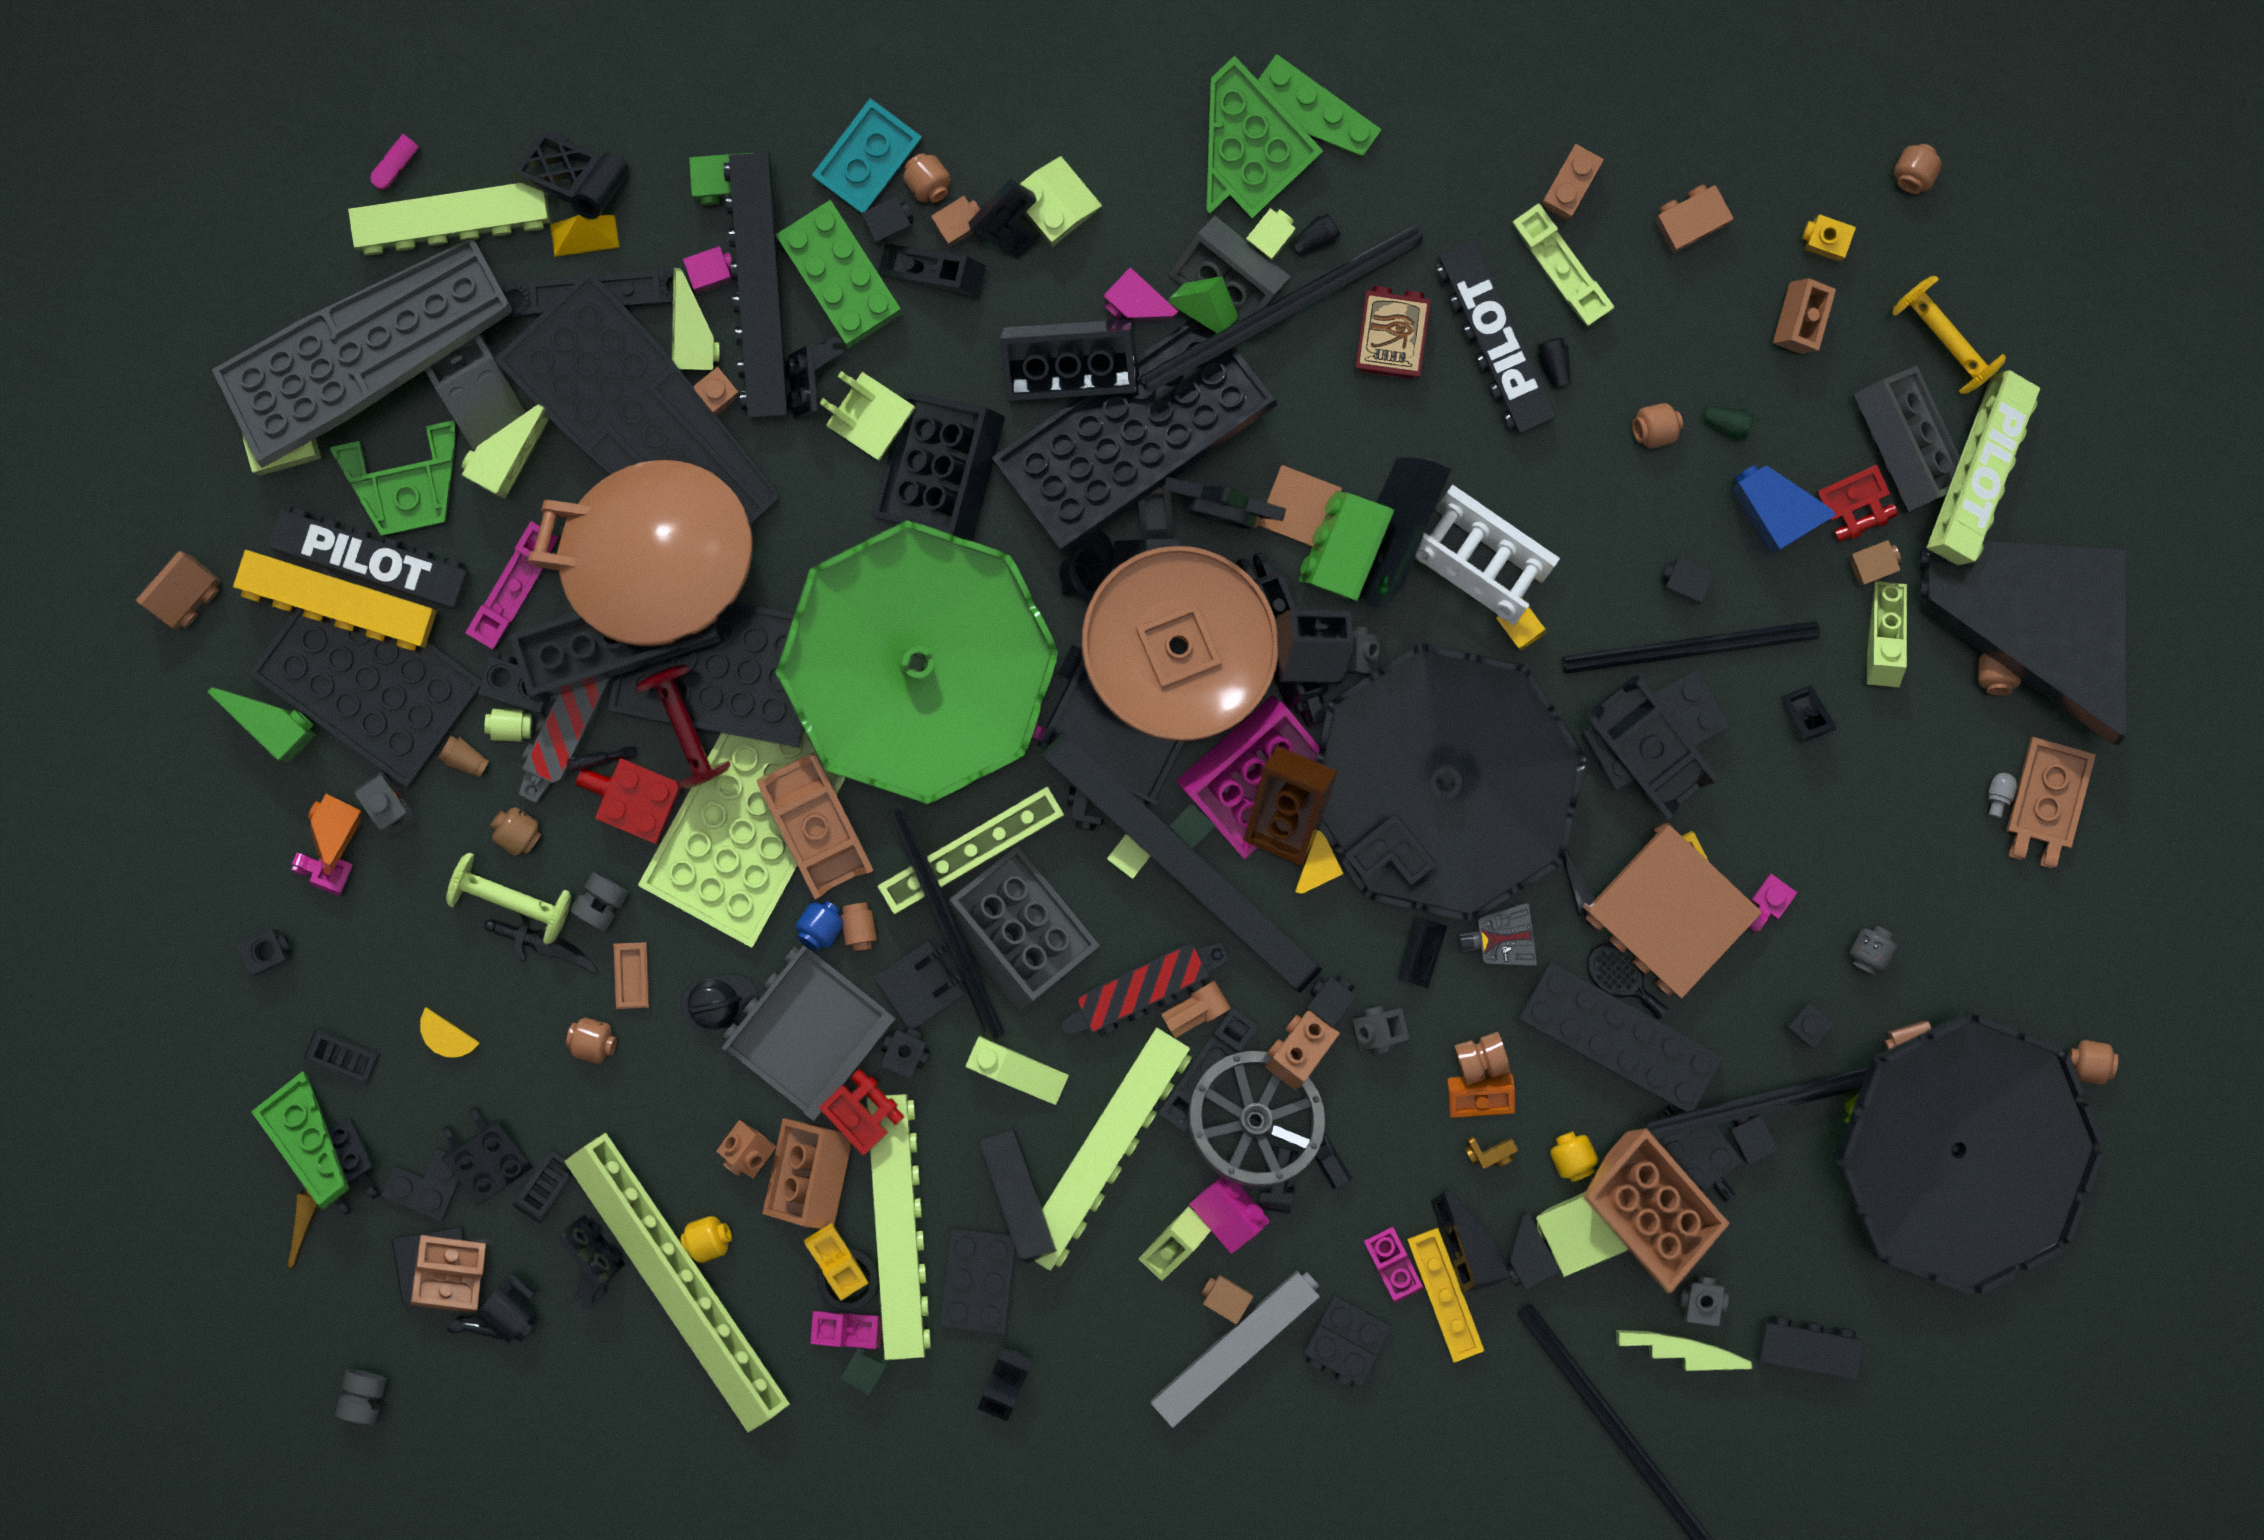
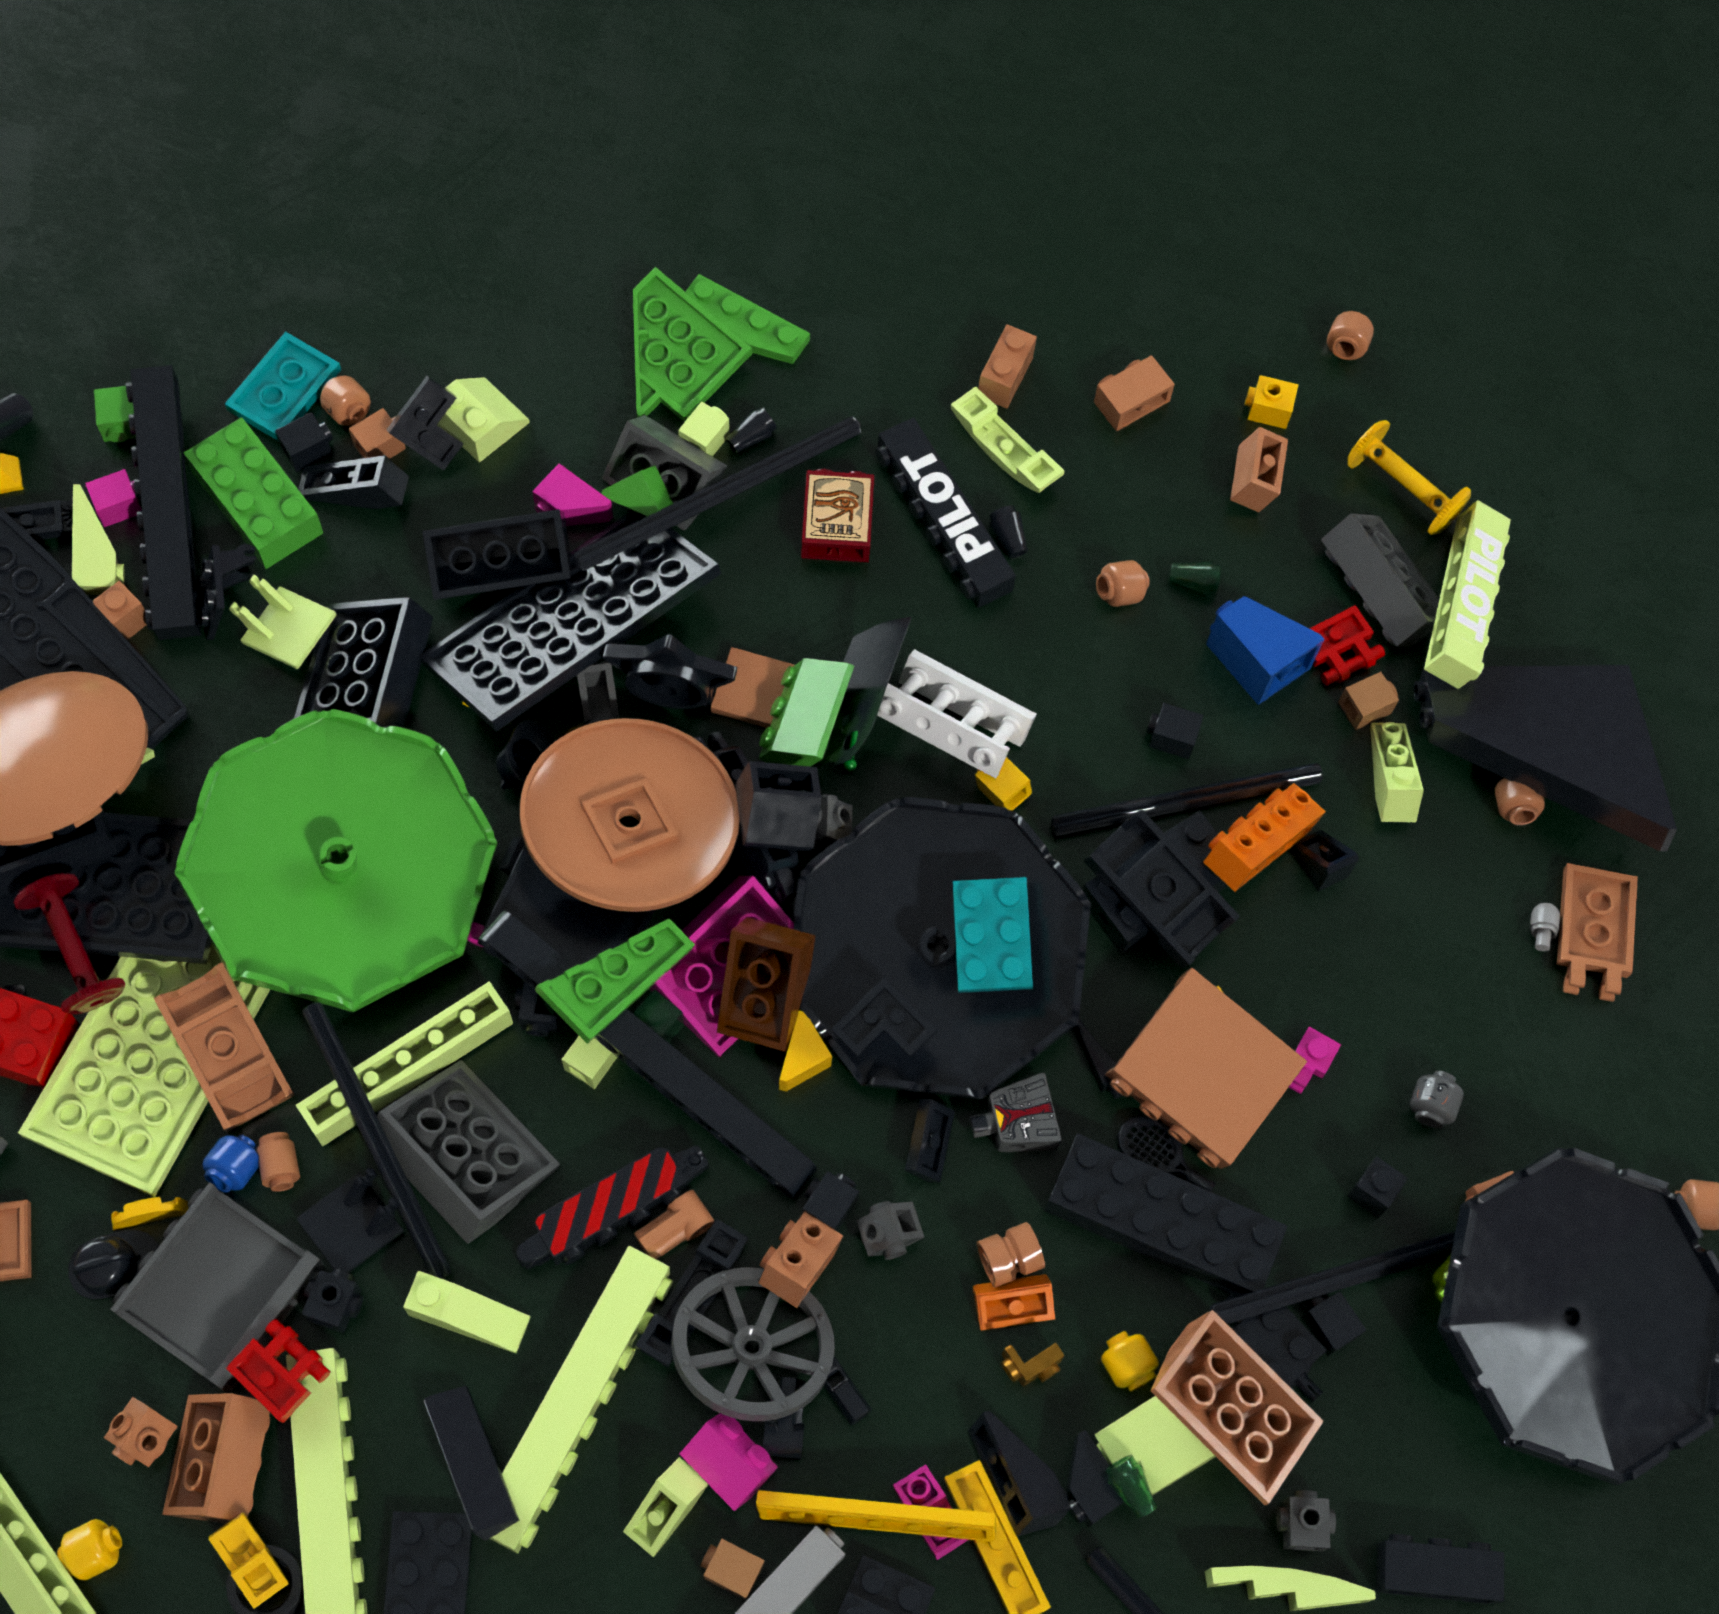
camera: 10 degrees left, 20 degrees down
(748, 961) = (147, 1211): none -> yellow tile
(1153, 807) = (605, 986): none -> bright green wing
(1347, 1268) = (876, 1516): none -> yellow tile
(1494, 782) = (992, 935): none -> teal plate
(1561, 1264) = (1131, 1484): none -> clear green cone
(1753, 700) = (1262, 836): none -> orange brick

